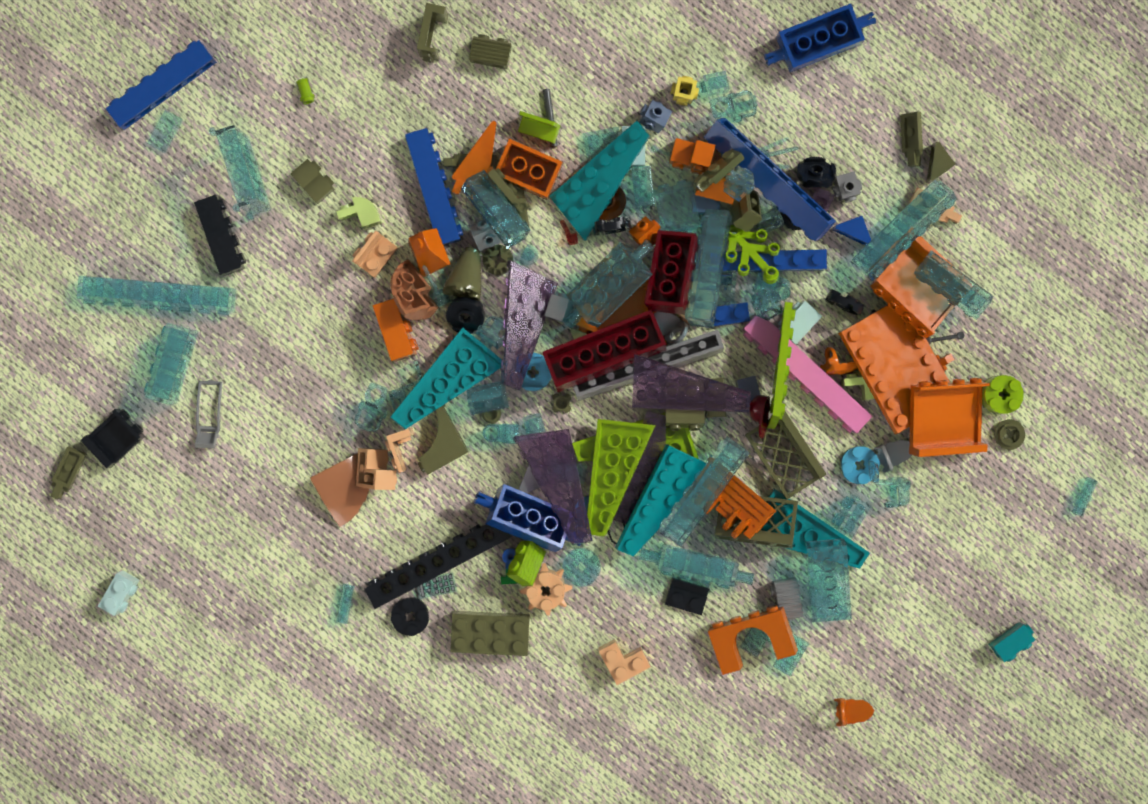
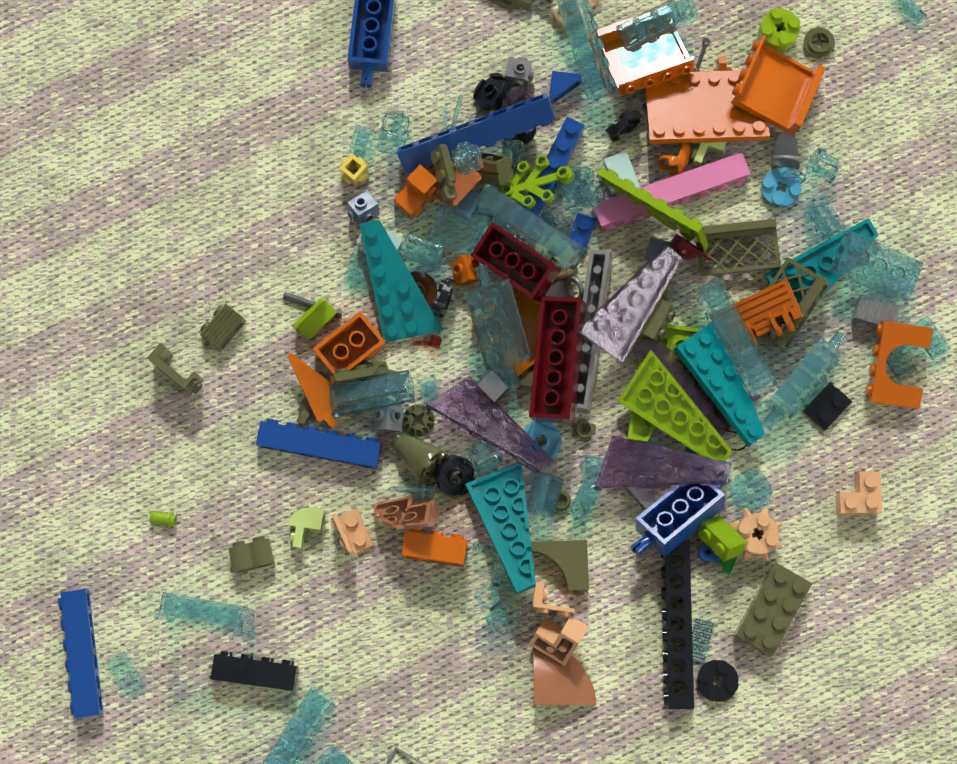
camera: 60 degrees left, 10 degrees down
(345, 603) = (674, 737): clear light blue pin -> none
(428, 251) = (375, 478): orange slope -> none

